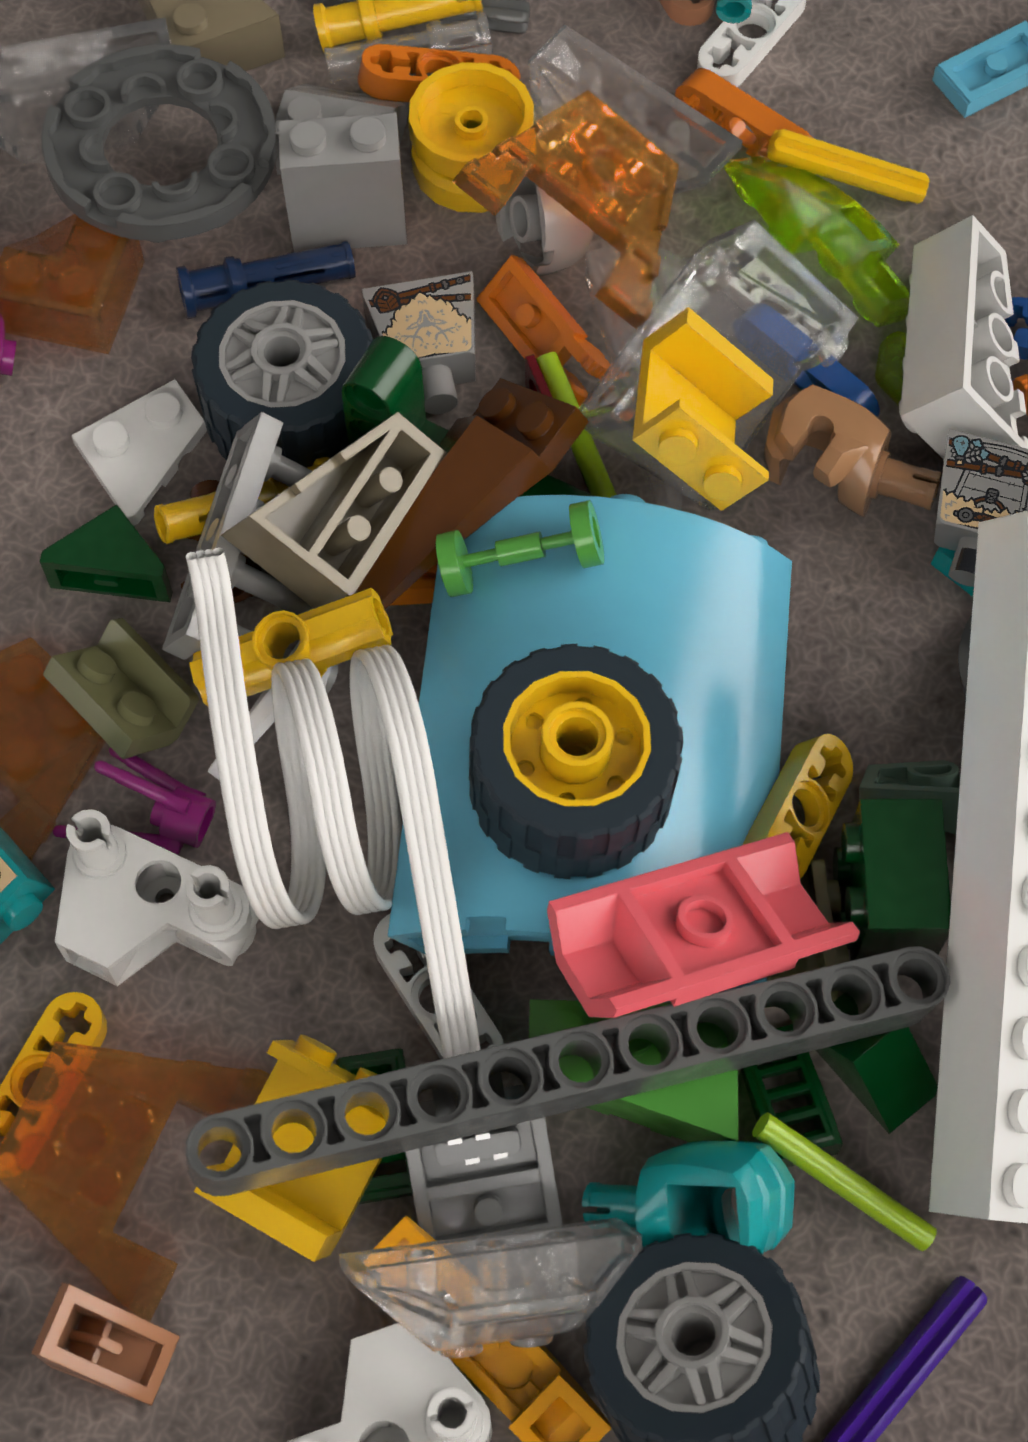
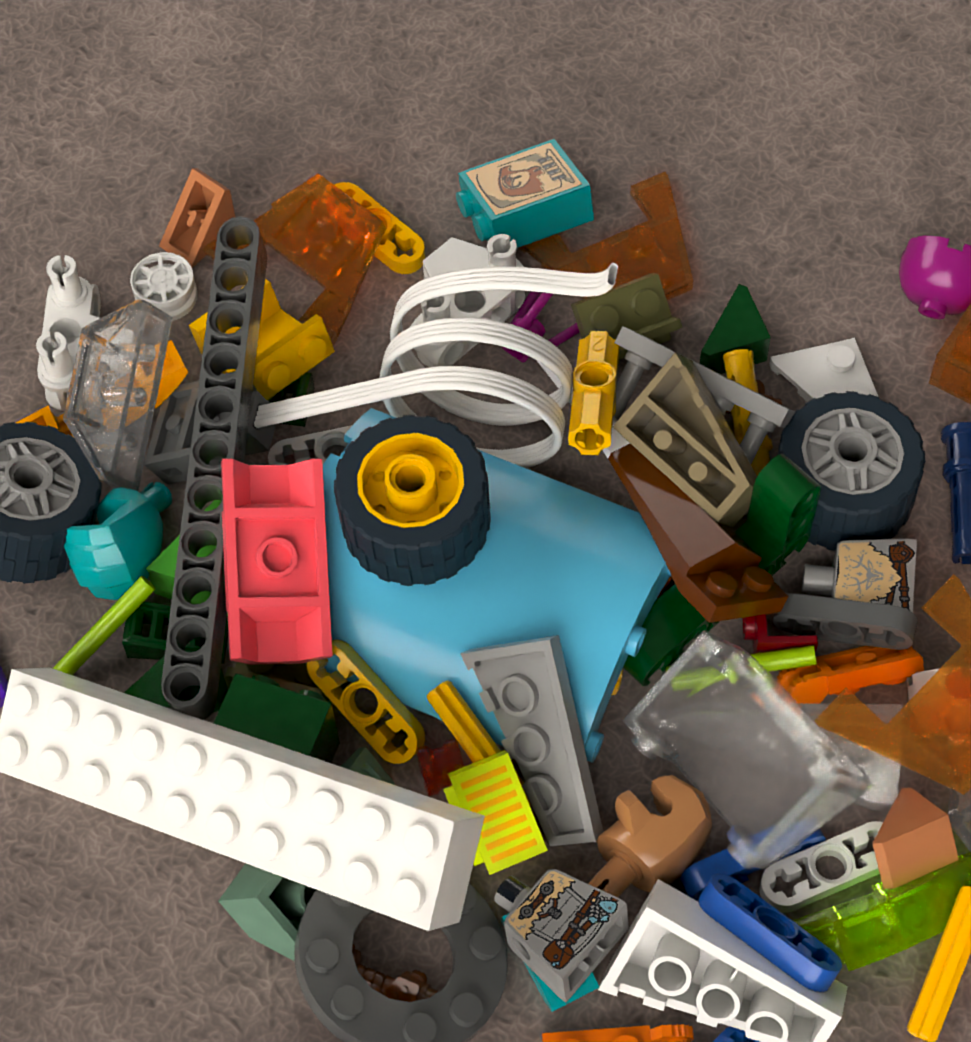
camera: 110 degrees right, 5 degrees down
(236, 1350) = (165, 285): none -> white wheel
(456, 562) = (600, 573): bright green wheel -> none
(488, 324) = (847, 621): none -> dark grey beam
(689, 405) = (692, 700): yellow panel -> none
(727, 202) = (913, 840): none -> nougat slope
(772, 584) = (536, 711): none -> light grey wing
(803, 664) = (463, 723): none -> yellow axle
(838, 704) = (436, 765): none -> clear red wheel
(881, 615) = (509, 825): none -> neon yellow brick
(897, 331) = (770, 933): none -> blue beam

